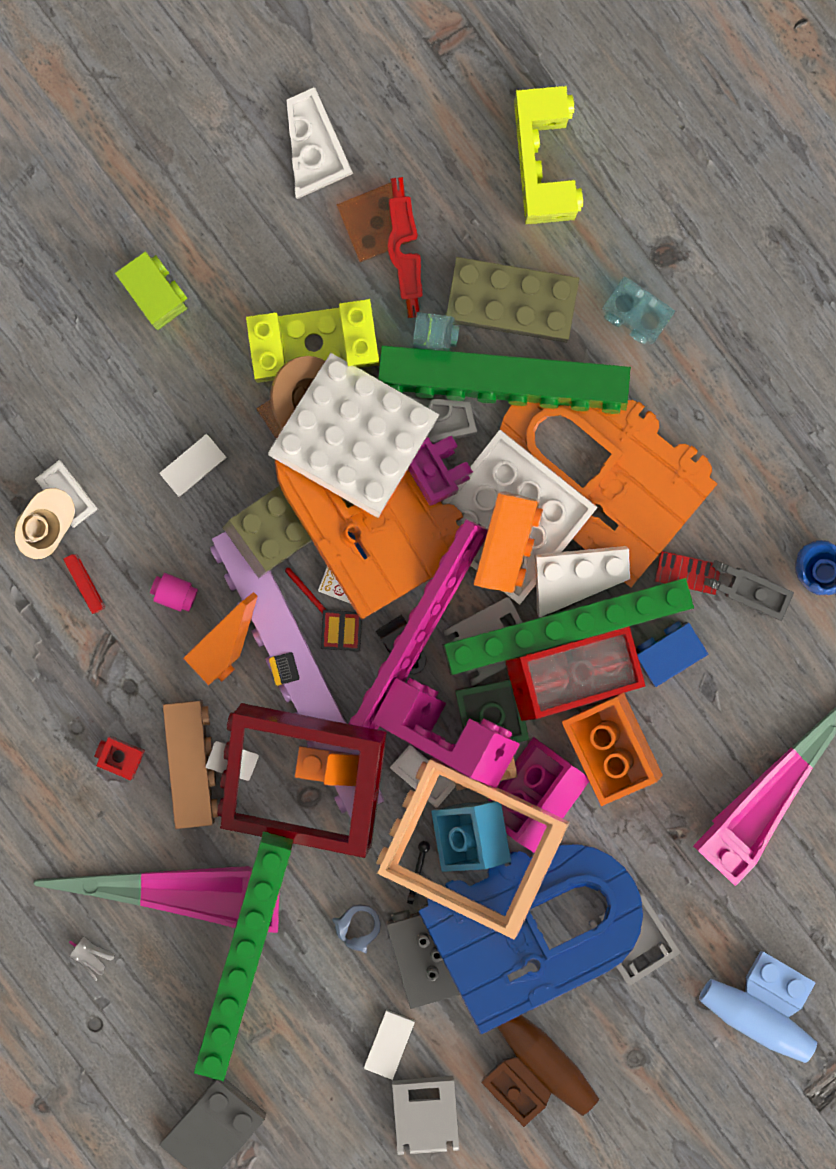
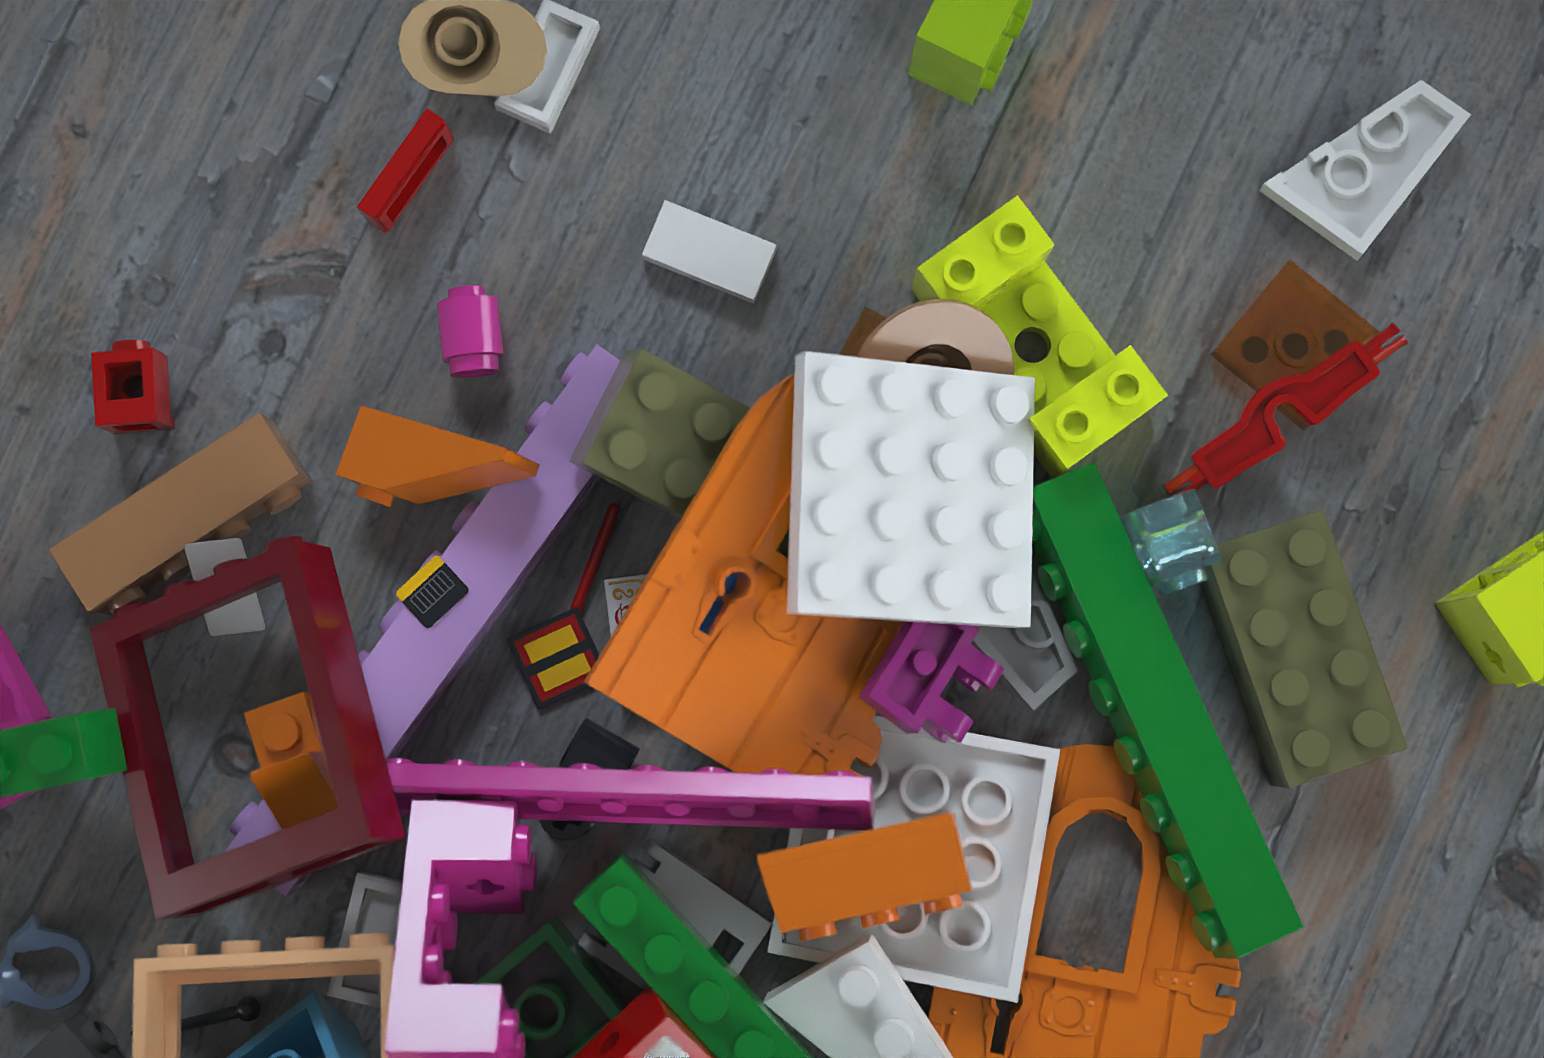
camera: 65 degrees right, 5 degrees down
(642, 304) = (1419, 884): clear light blue brick -> none

